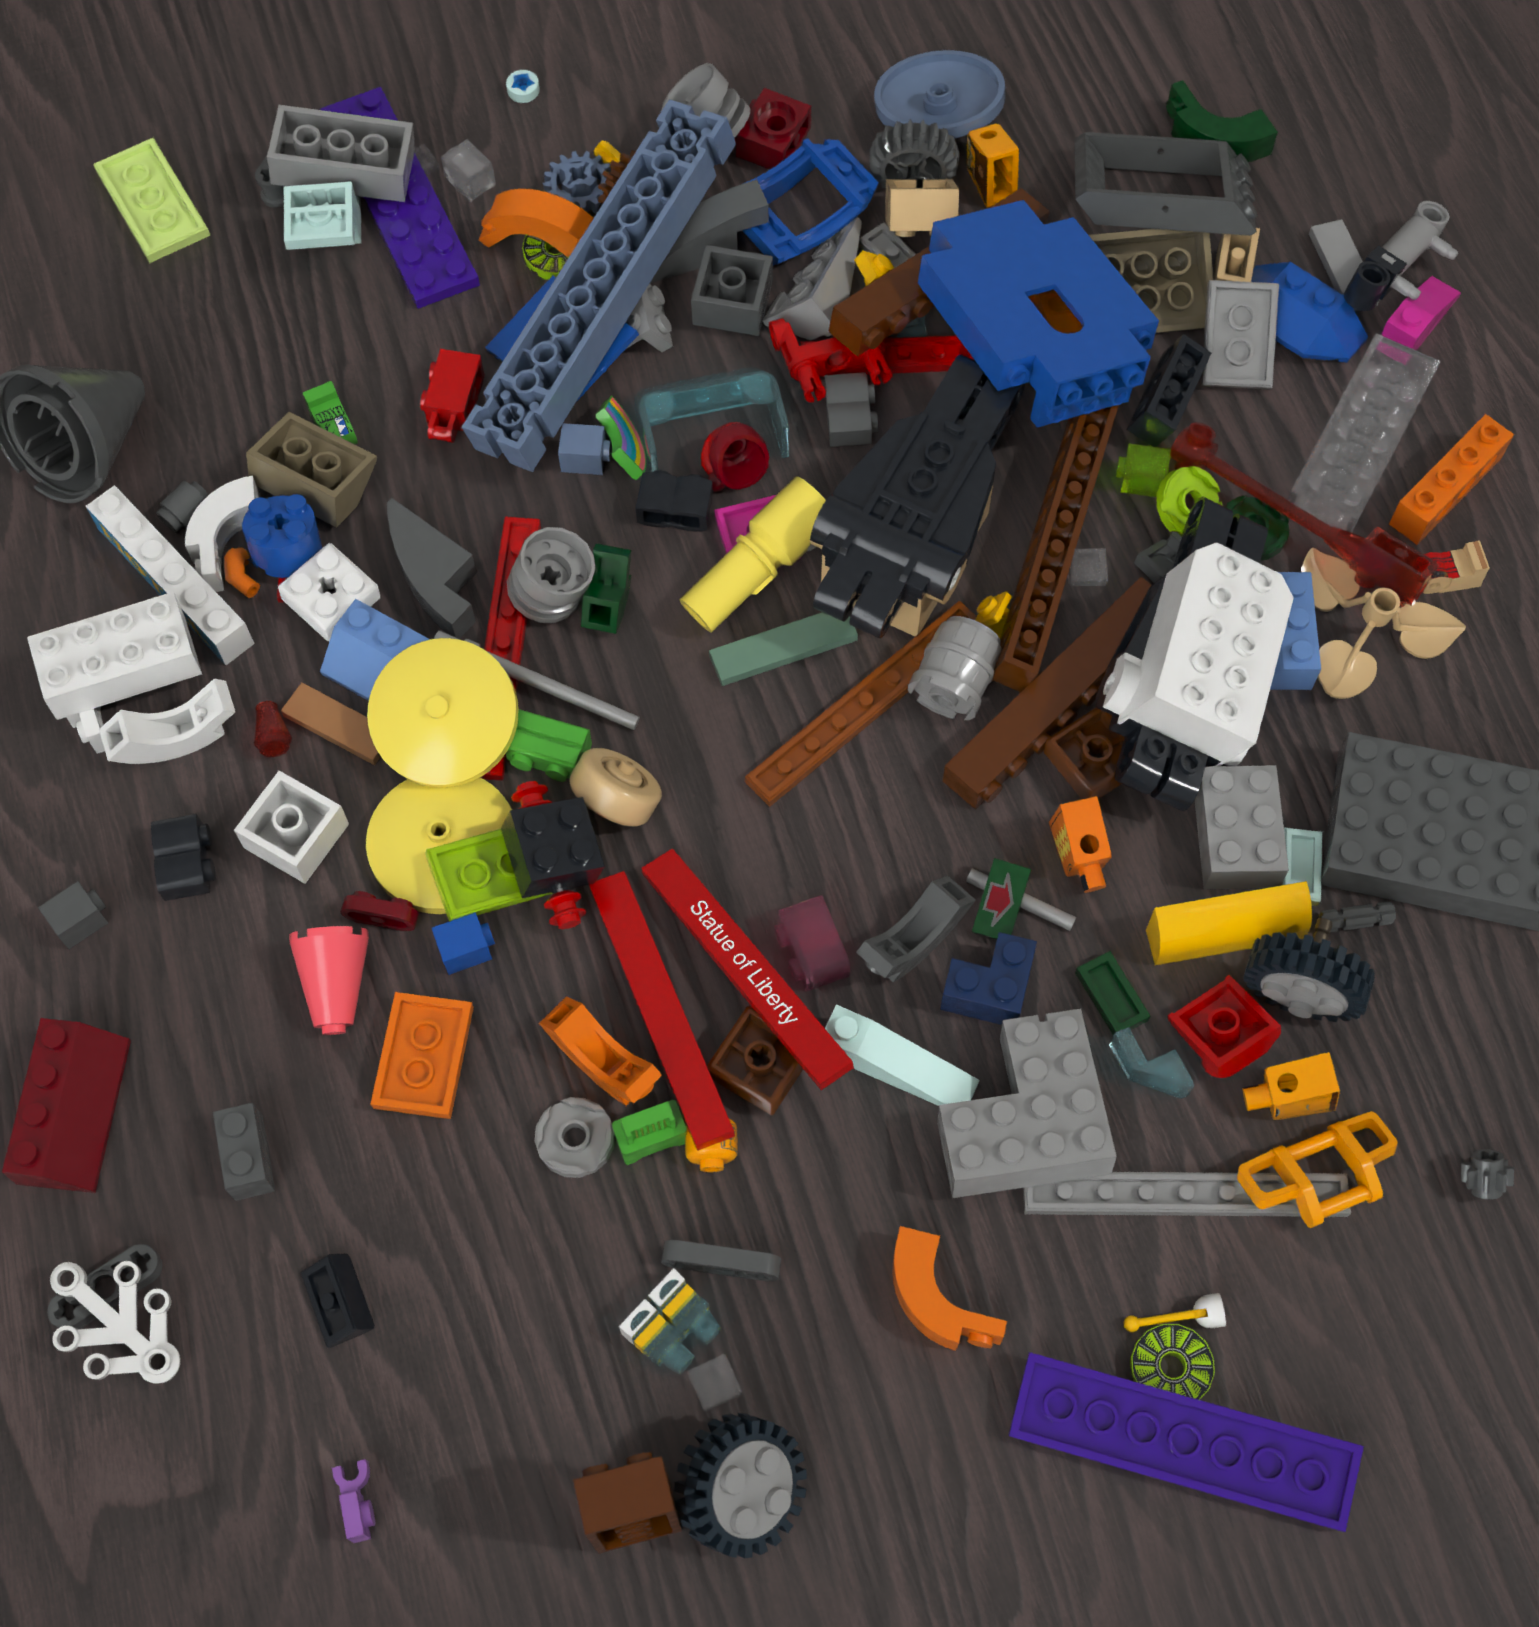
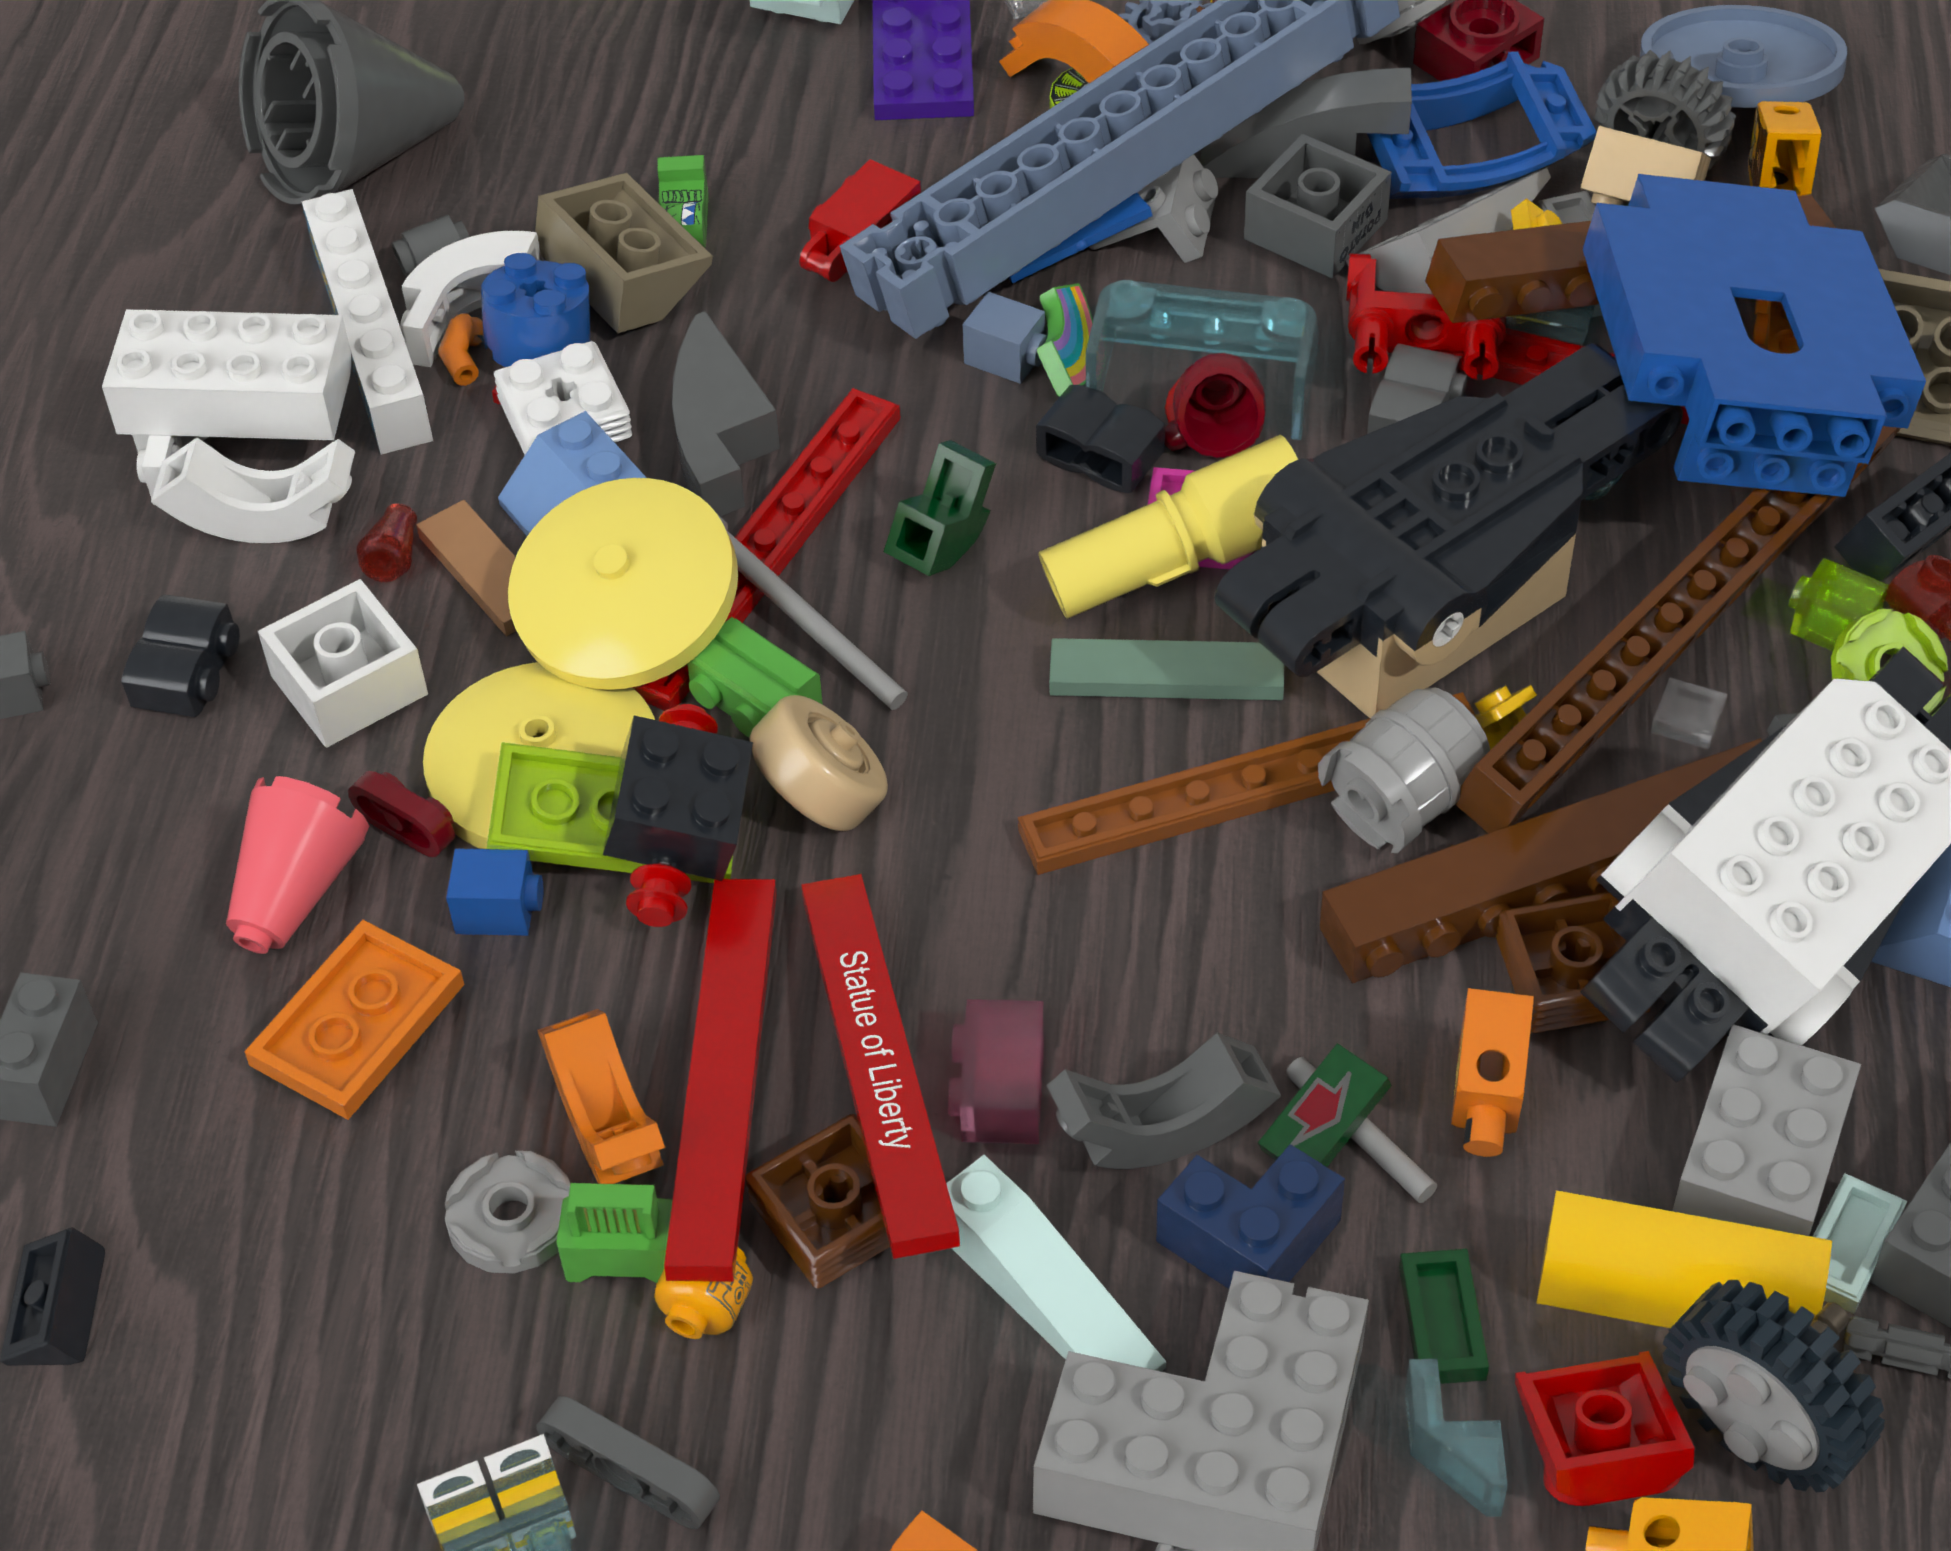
camera: 25 degrees right, 15 degrees down
(550, 575) = (866, 461): light grey wheel -> none

